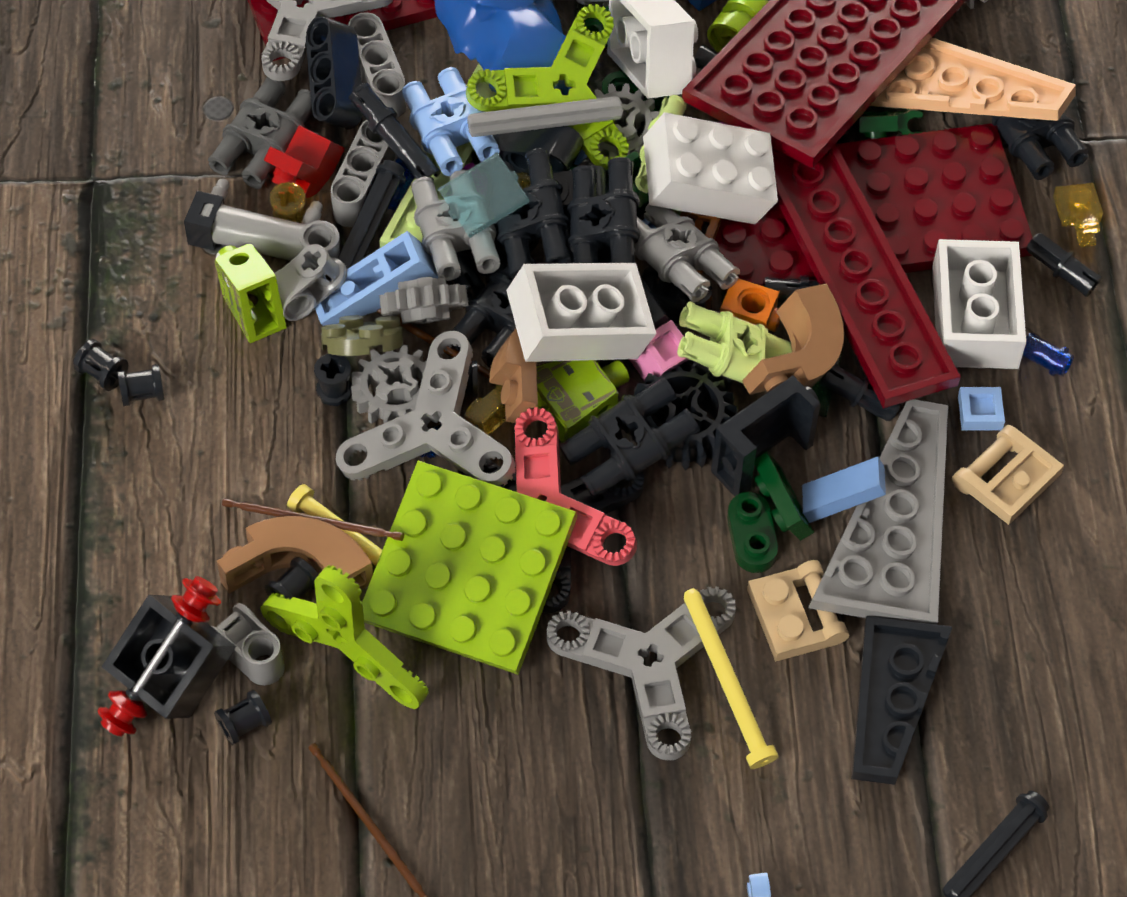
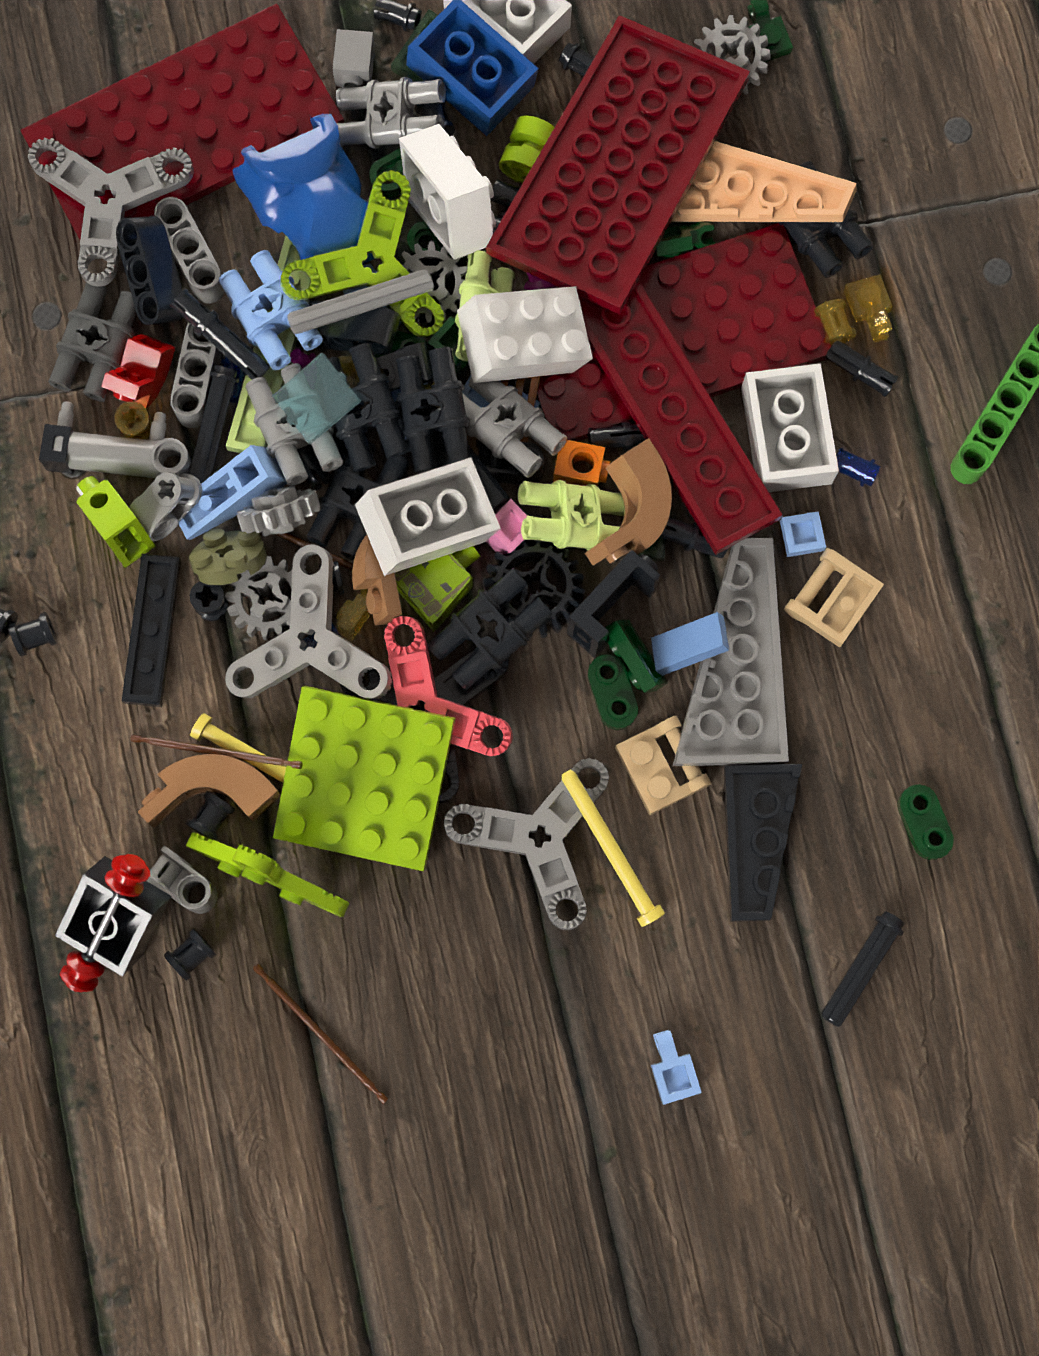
camera: 10 degrees left, 20 degrees up
(265, 404) = (151, 630): none -> black tile
(1040, 217) = (835, 321): none -> clear yellow bush
(1082, 708) = (923, 822): none -> dark green plate

